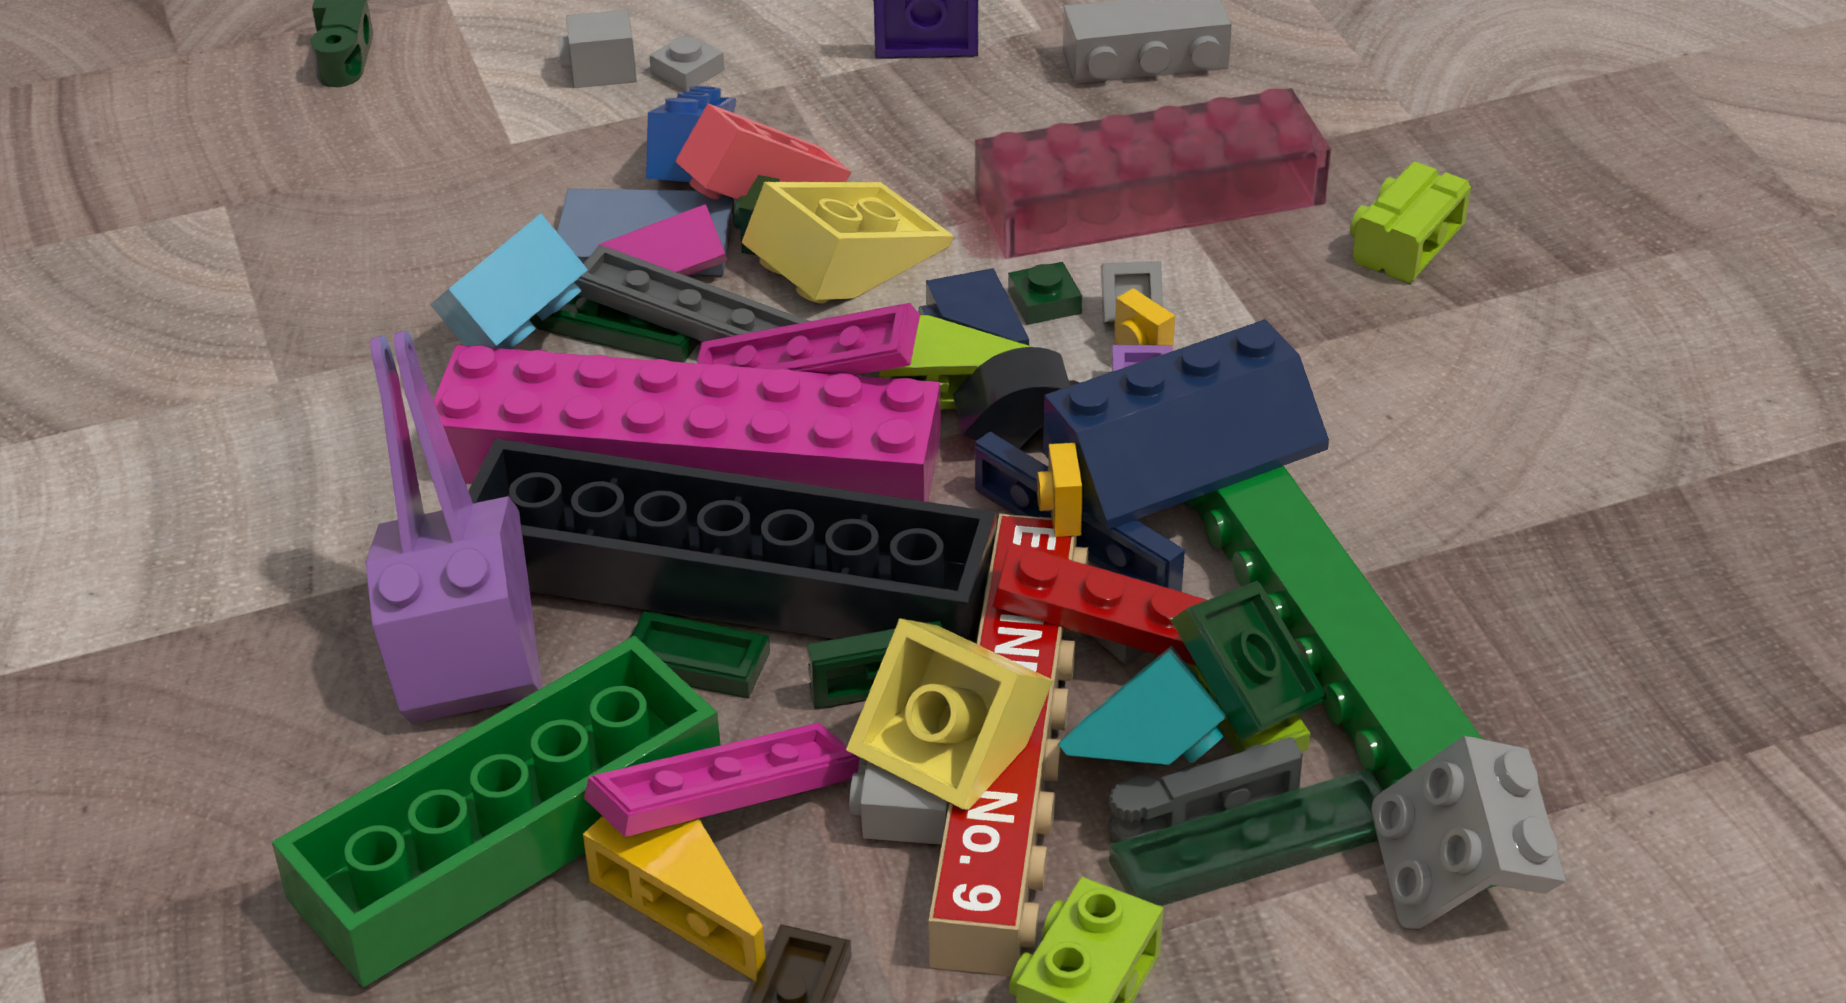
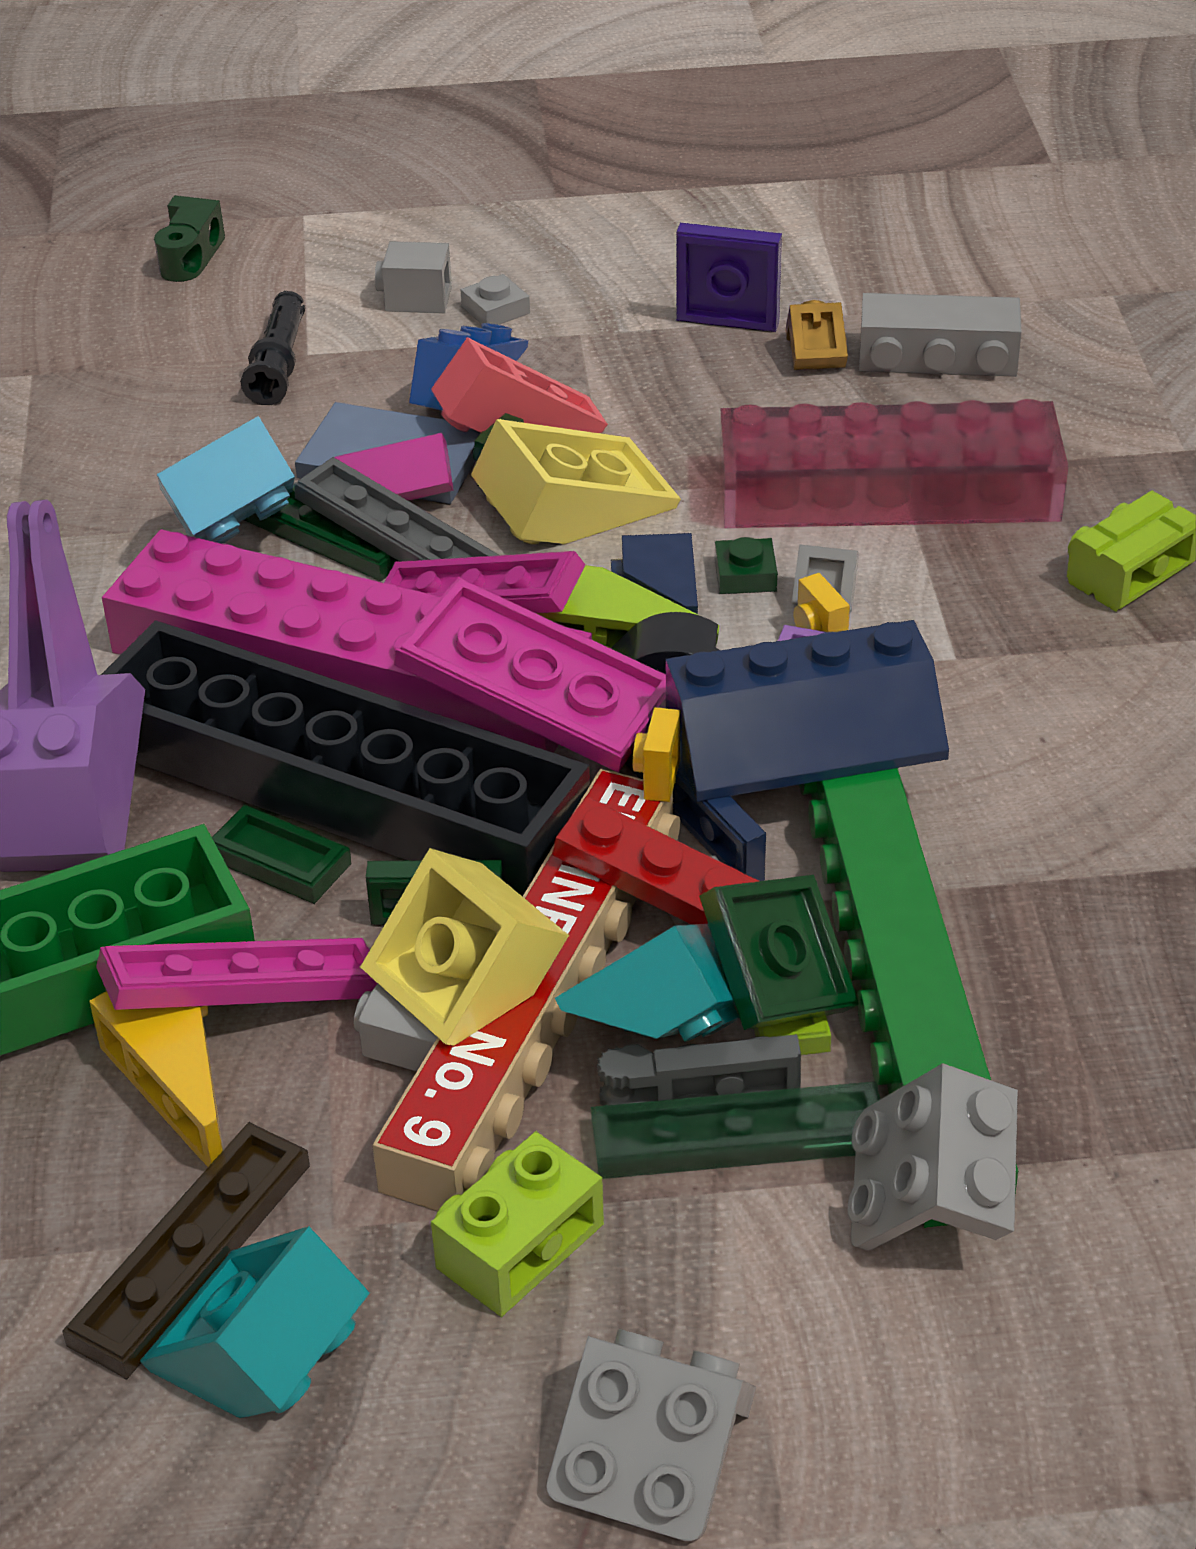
camera: 15 degrees right, 0 degrees up
(482, 149) = (273, 355): none -> black pin
(908, 430) = (534, 673): none -> dark pink tile
(1027, 53) = (817, 335): none -> pearl gold bracket

